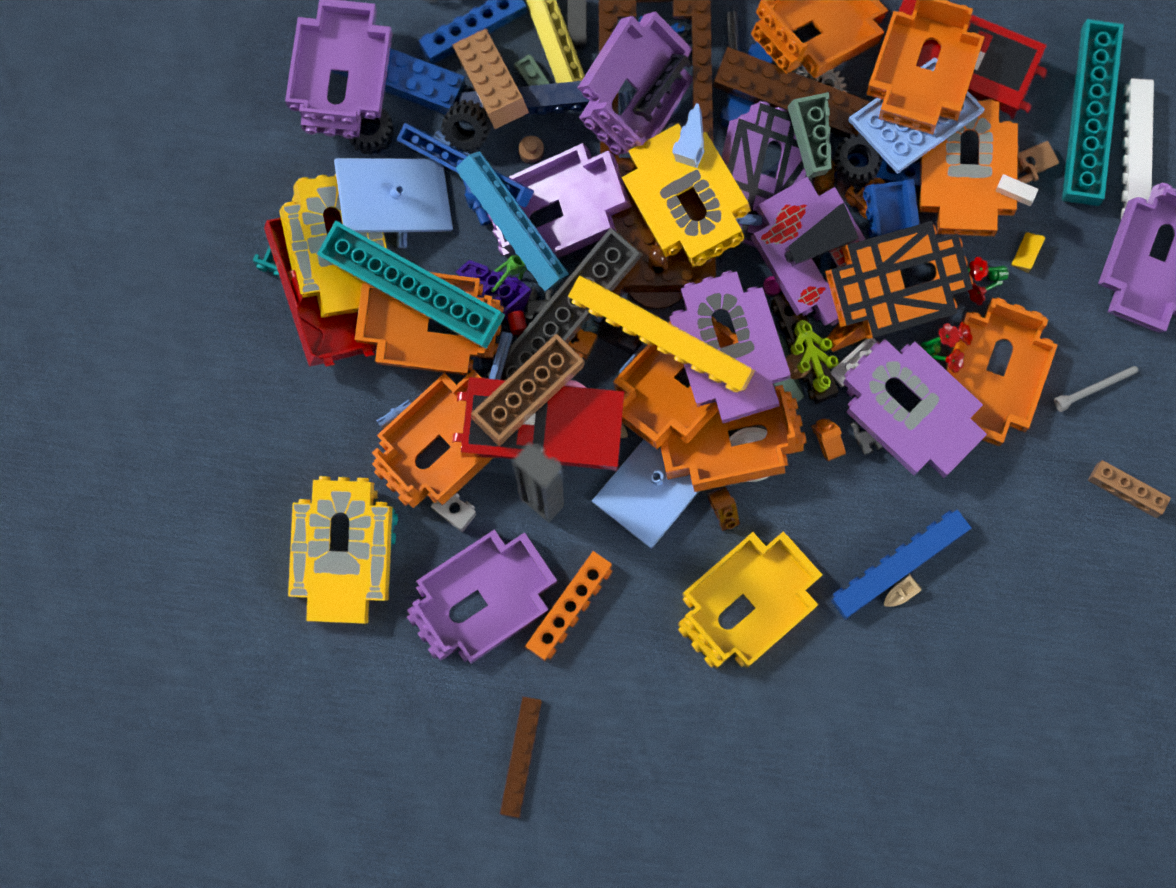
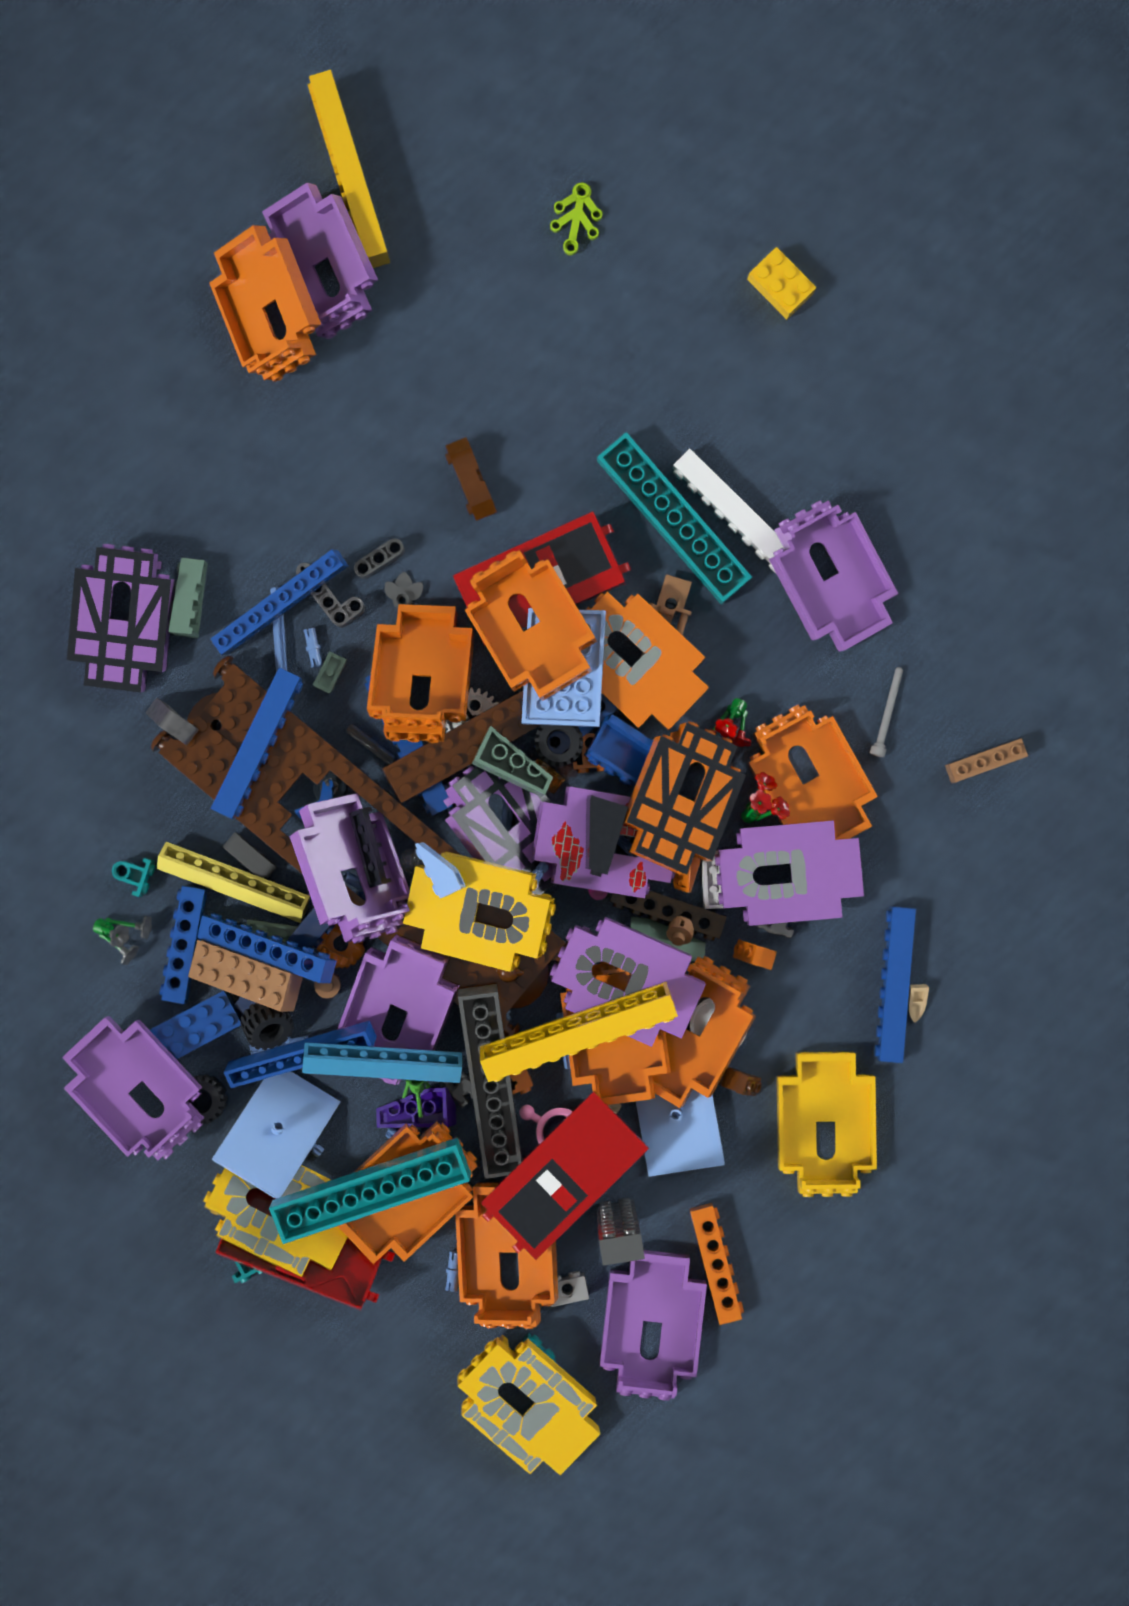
camera: 50 degrees left, 10 degrees up
(501, 356) = (483, 1161): medium blue axle -> none
(517, 323) = (464, 1120): red piece -> none
(520, 757) = (797, 1394): reddish brown plate -> none
(525, 77) = (253, 945): none -> blue brick
(527, 390) = (532, 1170): medium nougat brick -> none
(556, 129) = (344, 958): none -> orange piece
(805, 334) = (681, 913): lime plant -> none
(1016, 190) = (690, 643): white slope -> none
(1028, 251) = (739, 668): yellow slope -> none

